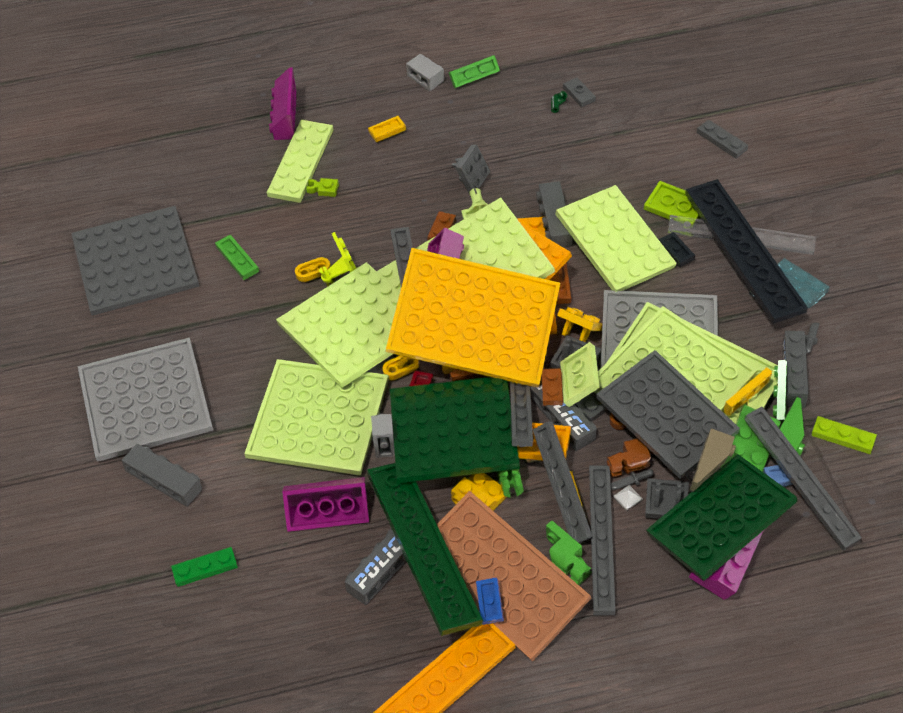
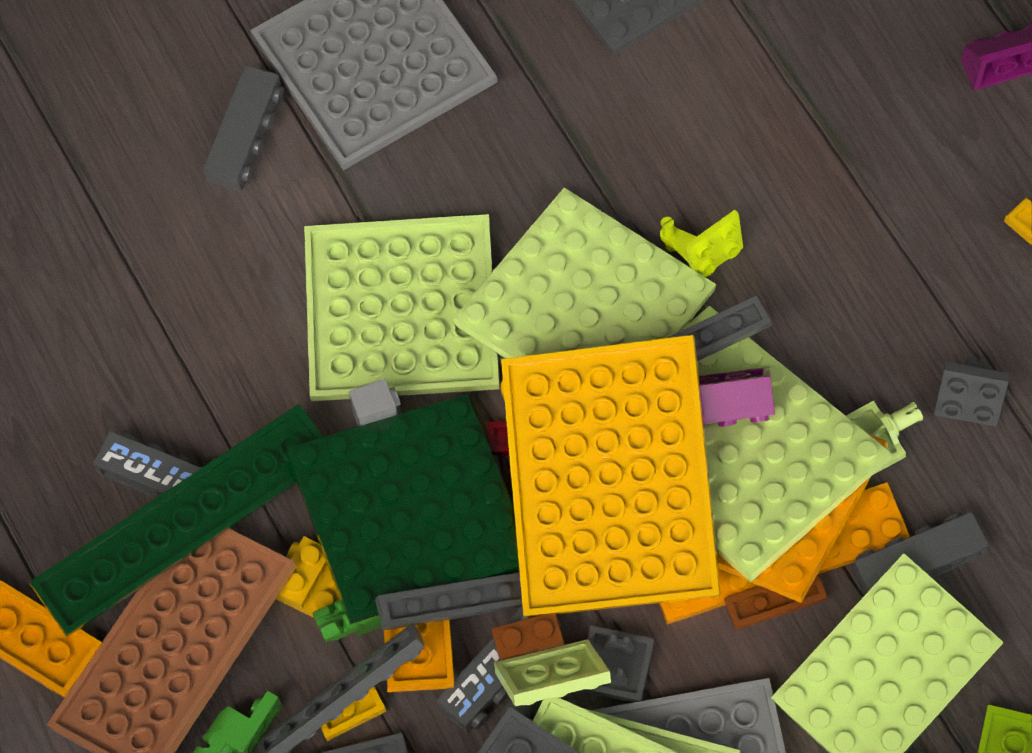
camera: 75 degrees right, 15 degrees up
(204, 566) = (110, 239): green plate -> none
(237, 257) = (679, 89): bright green plate -> none
(300, 161) = (923, 116): yellowish green plate -> none
(310, 270) = (688, 210): yellow plate -> none
(325, 187) = (874, 173): lime plate -> none
(325, 504) = (245, 365): magenta slope -> none
(442, 220) = (840, 381): dark orange plate -> none
(489, 600) = (117, 640): blue plate -> none
(576, 316) = (684, 652): yellow plate -> none

